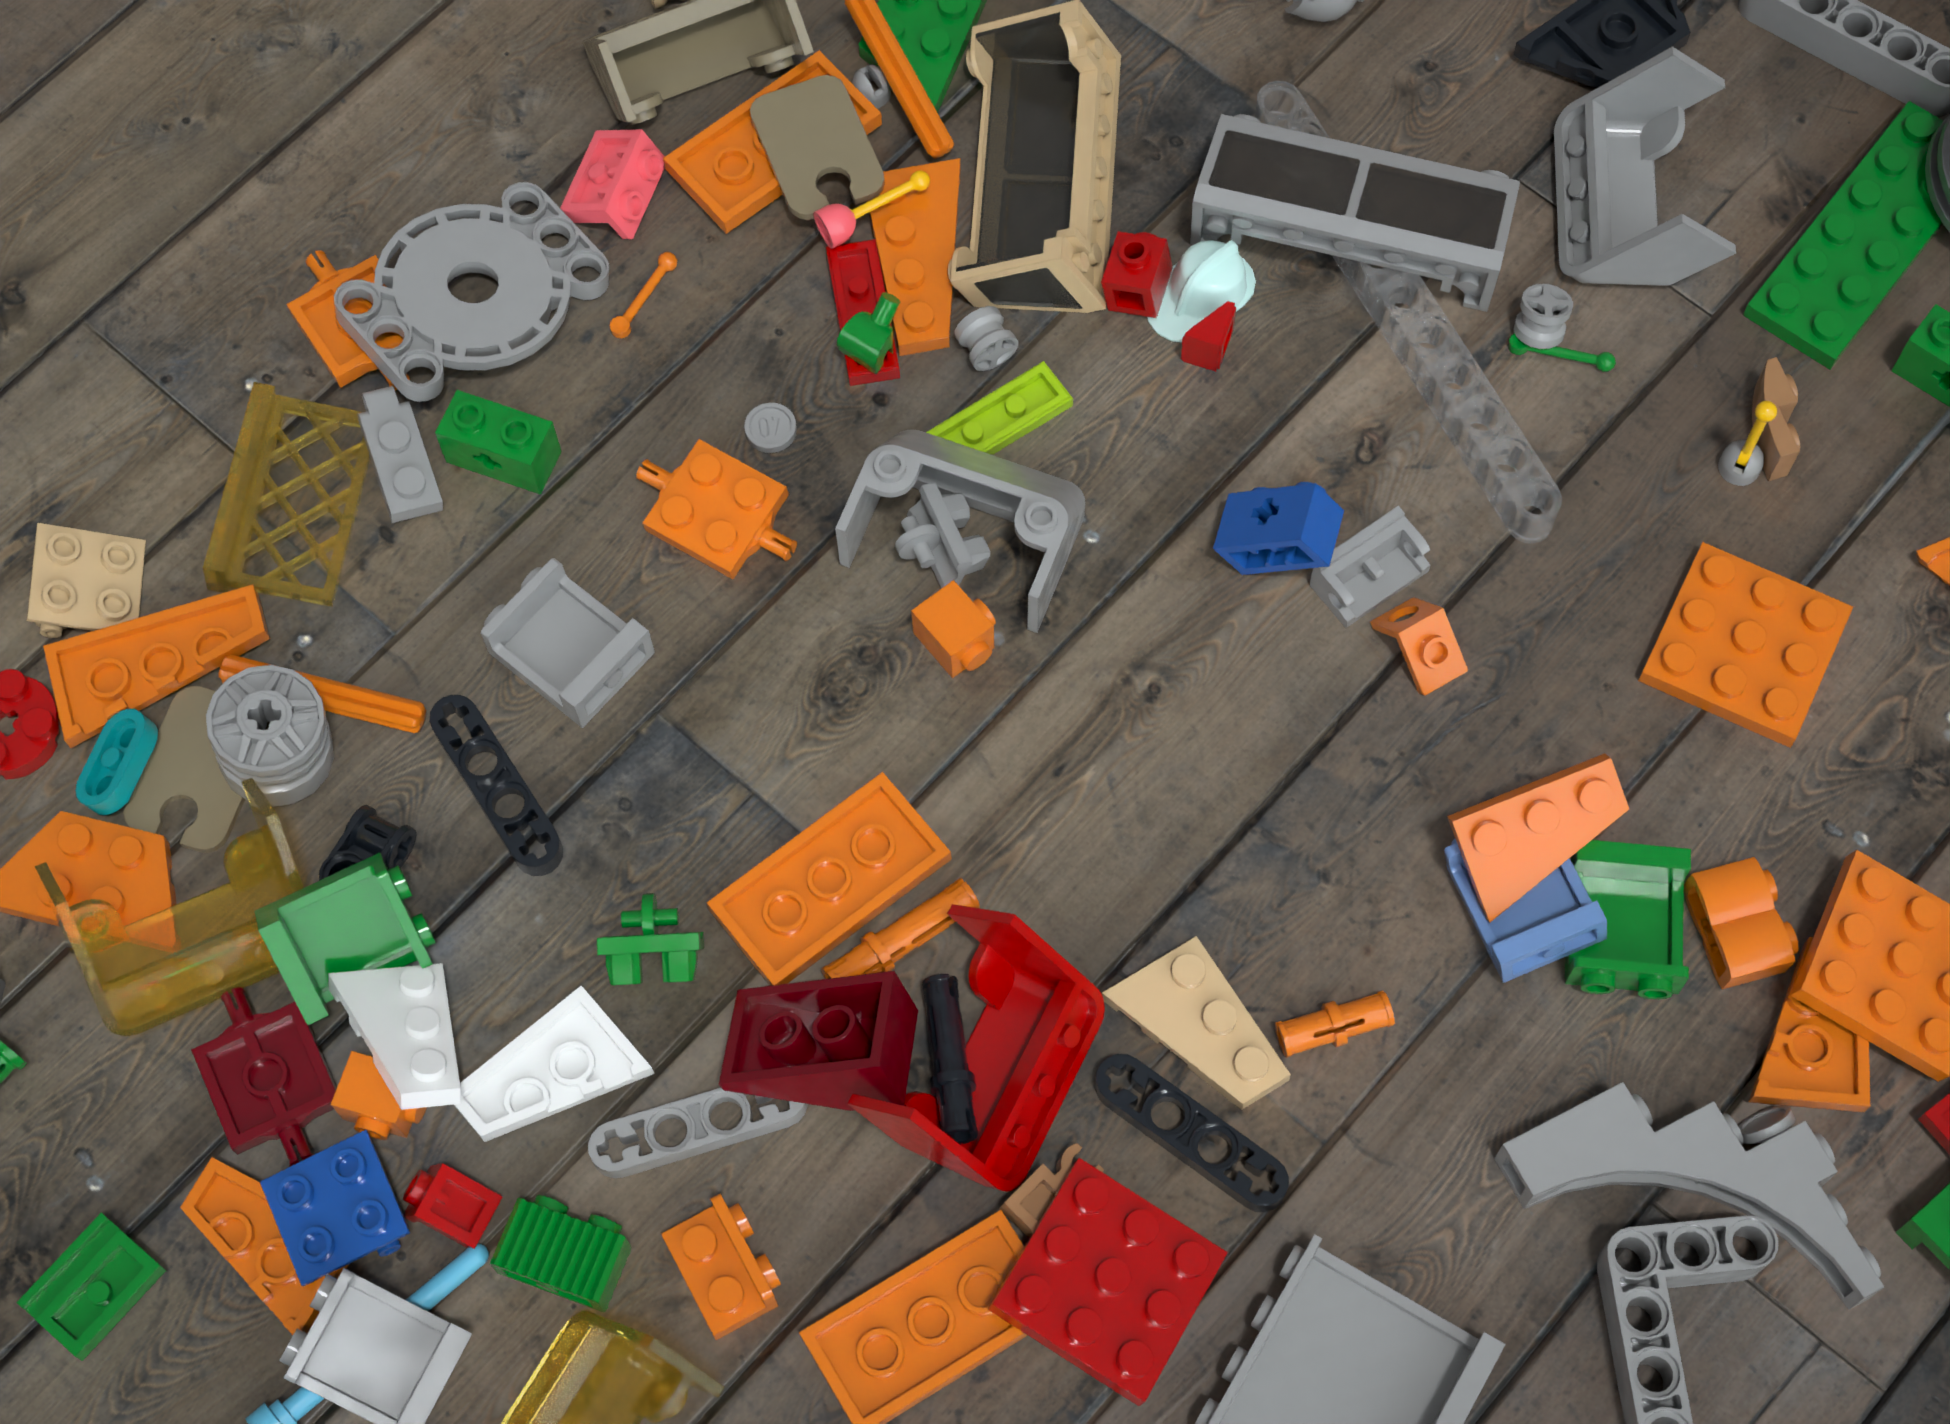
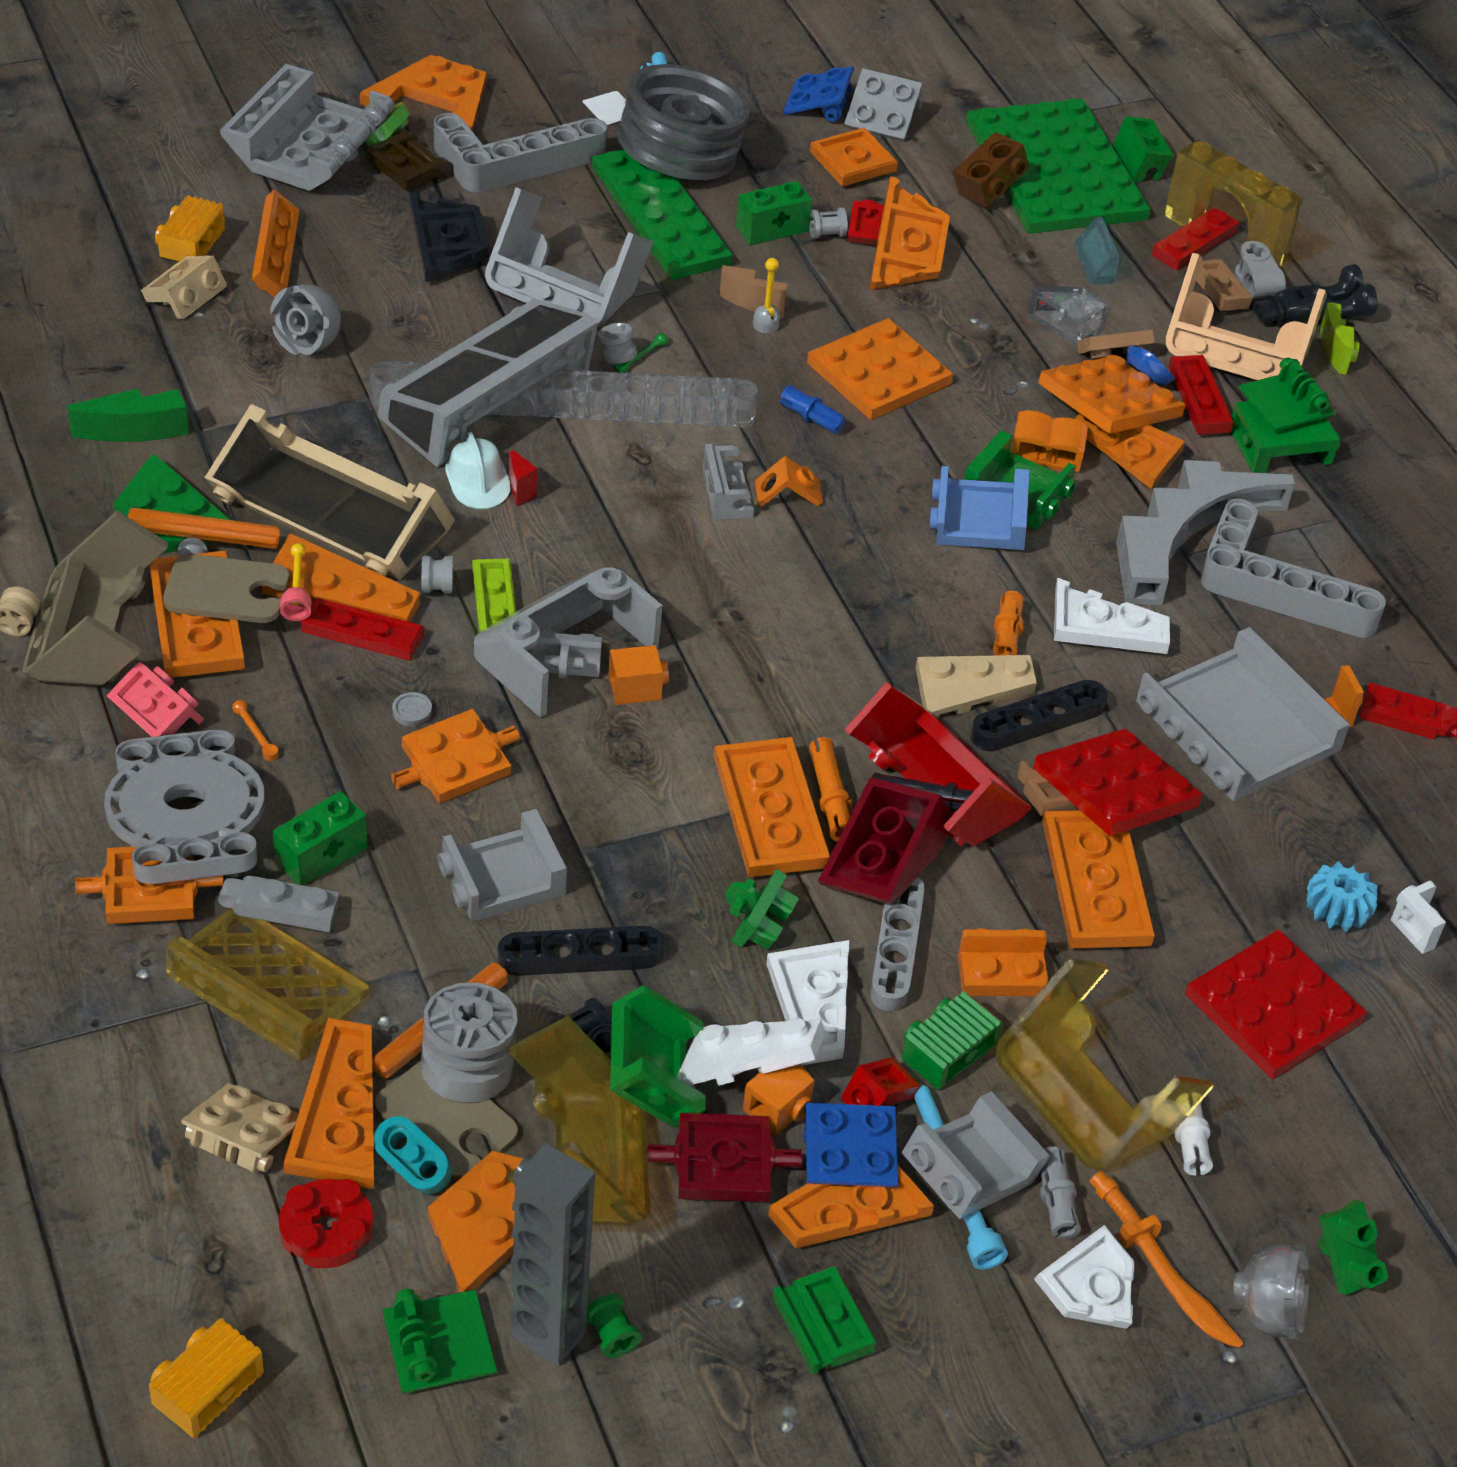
camera: 70 degrees left, 20 degrees down
(869, 334) = (399, 619): green piece -> none
(1137, 274) = (453, 484): red brick -> none
(1279, 529) = (682, 514): blue brick -> none
(1419, 1143) = (1097, 622): none -> white wing
(1535, 829) = (954, 475): wing -> none
(1592, 600) = (812, 409): none -> blue axle
(1767, 1124) = (1173, 478): light grey piece -> none

